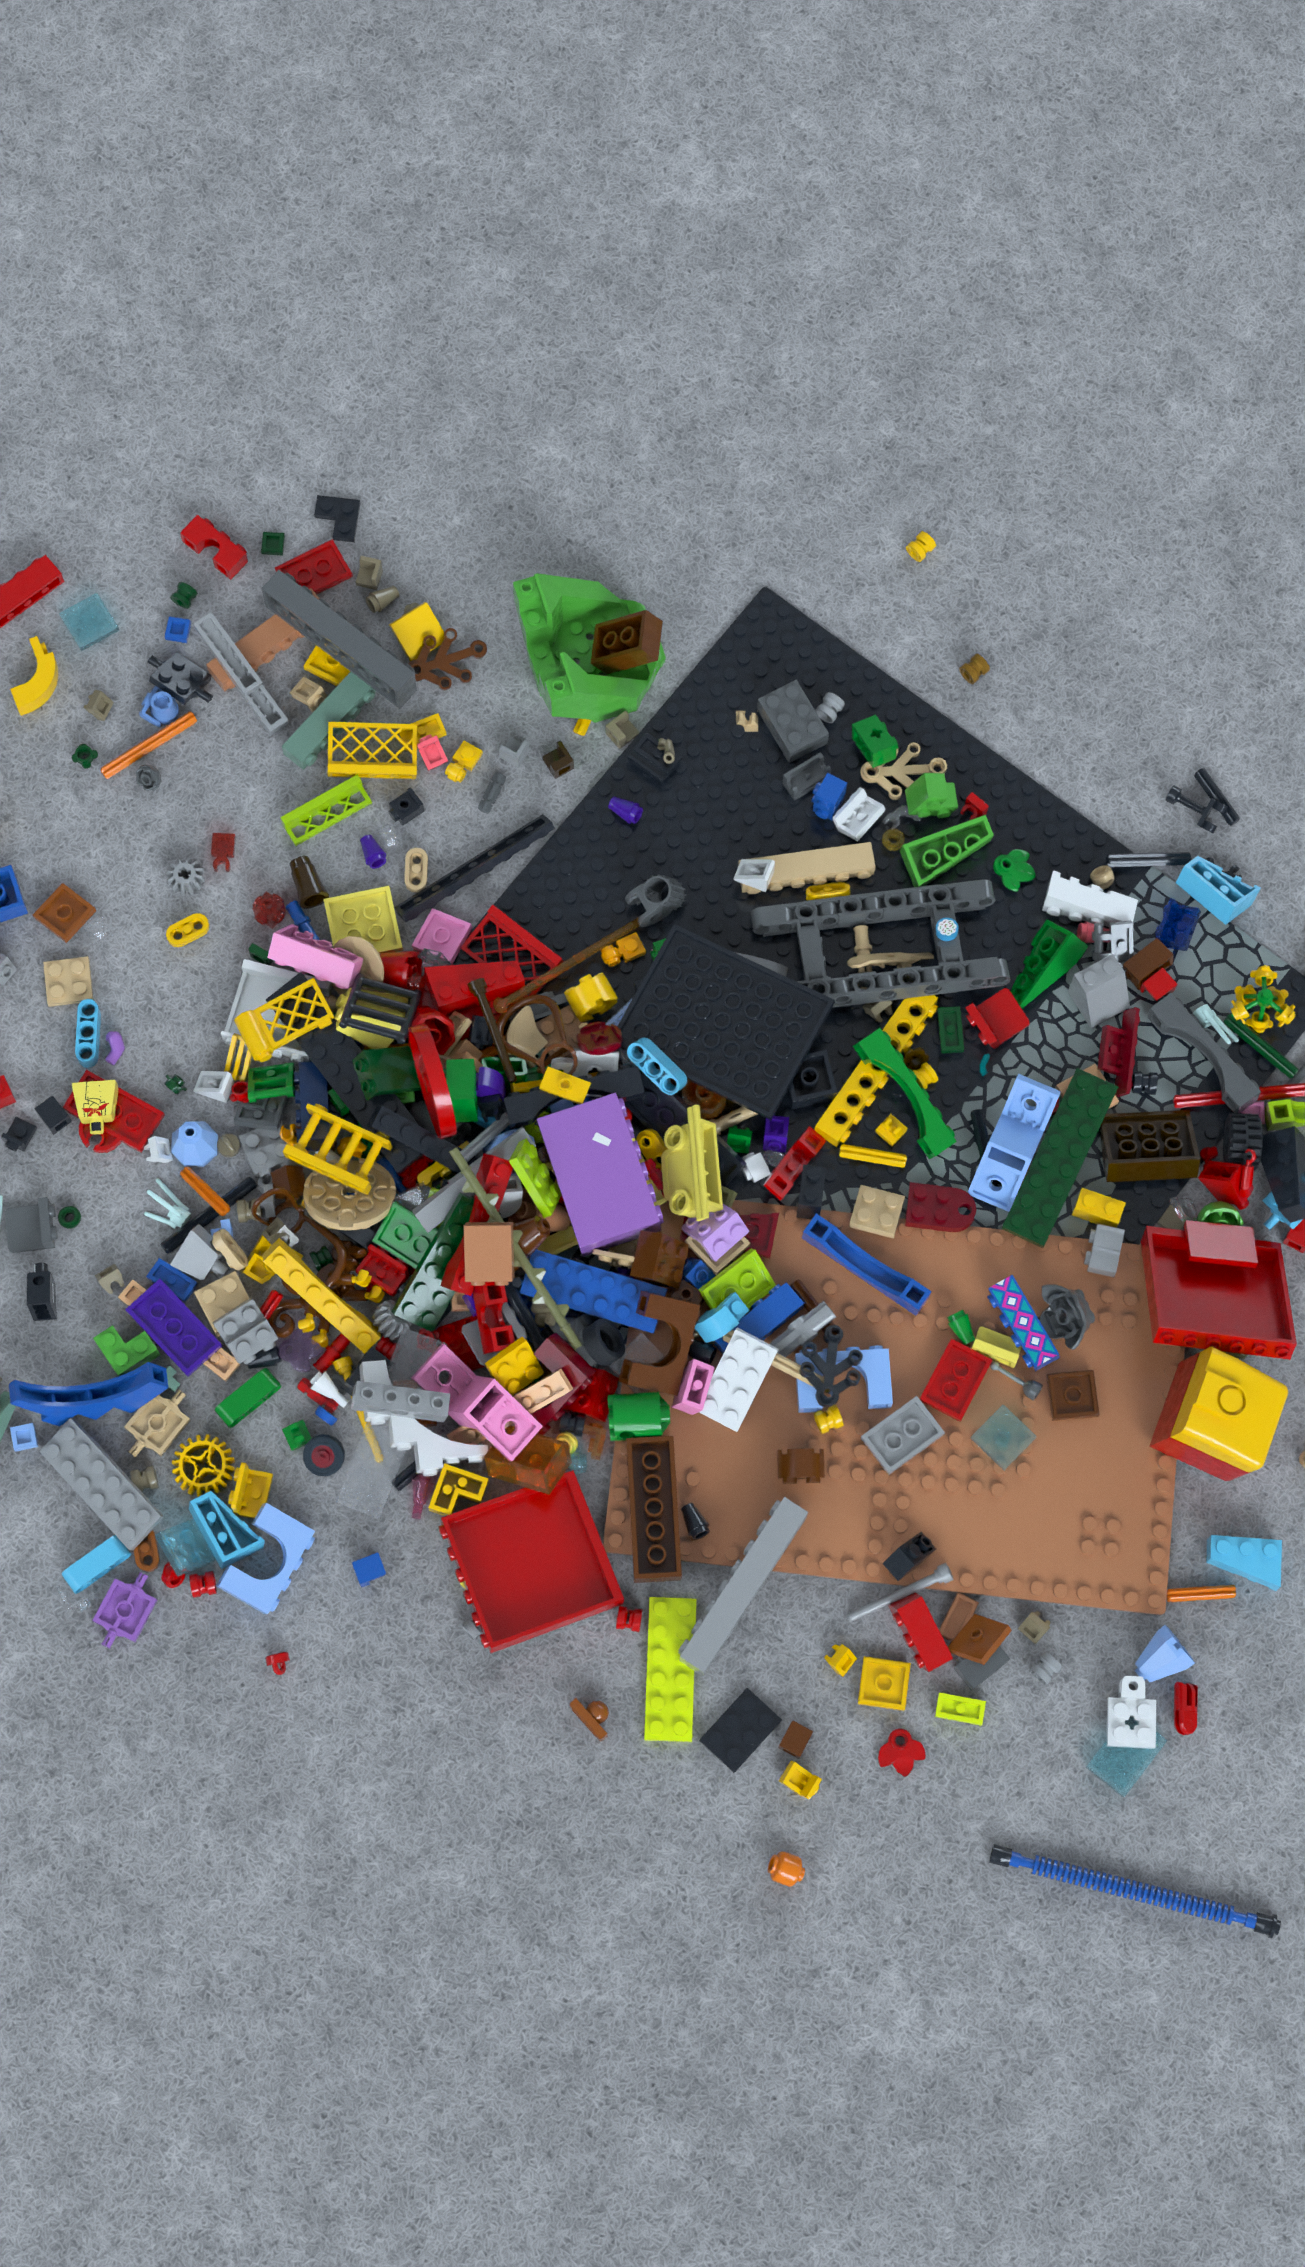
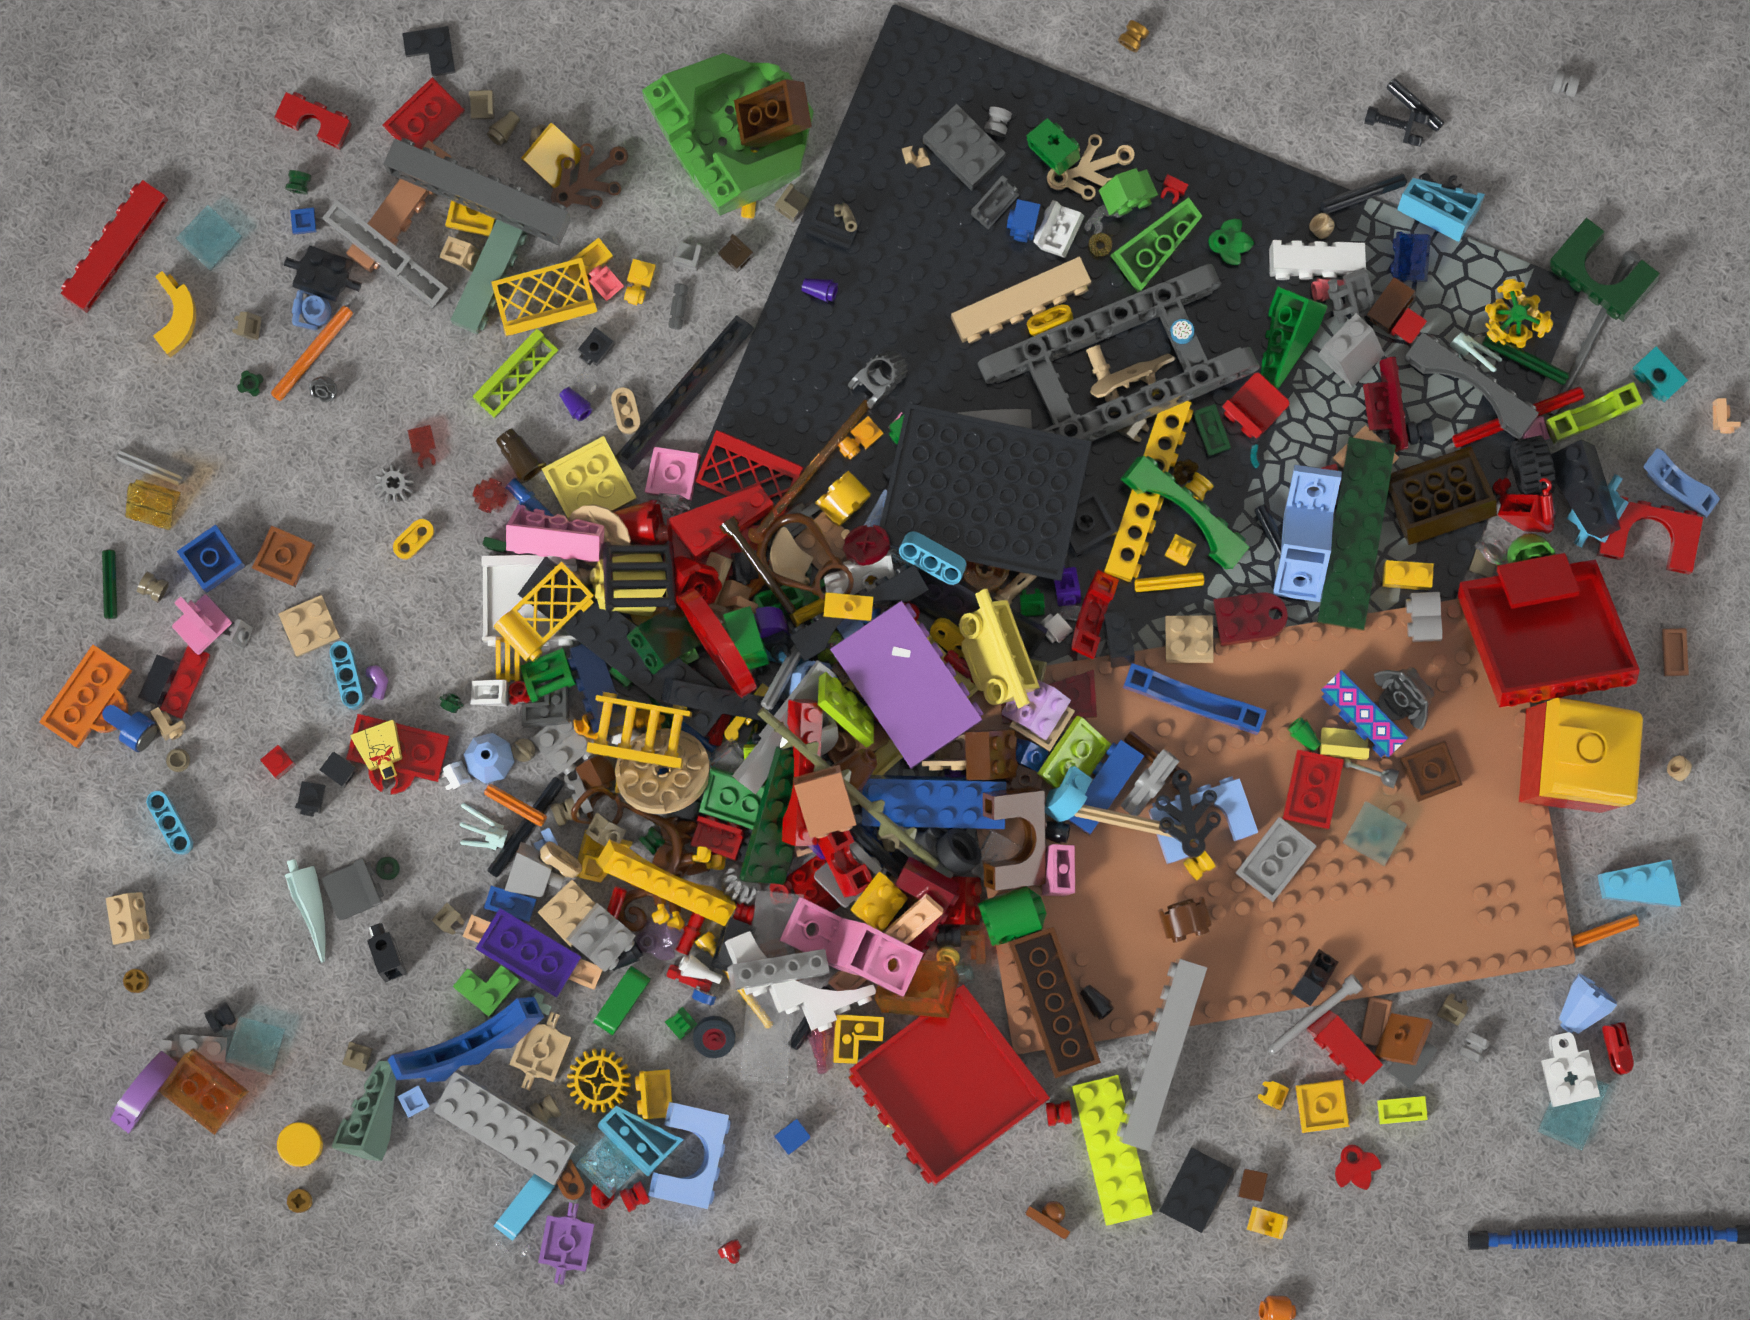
camera: 15 degrees left, 10 degrees up
(273, 543) = (372, 98): dark green tile -> none
(738, 1379) = (1101, 850): white plate -> none
(755, 873) = (972, 324): white slope -> none

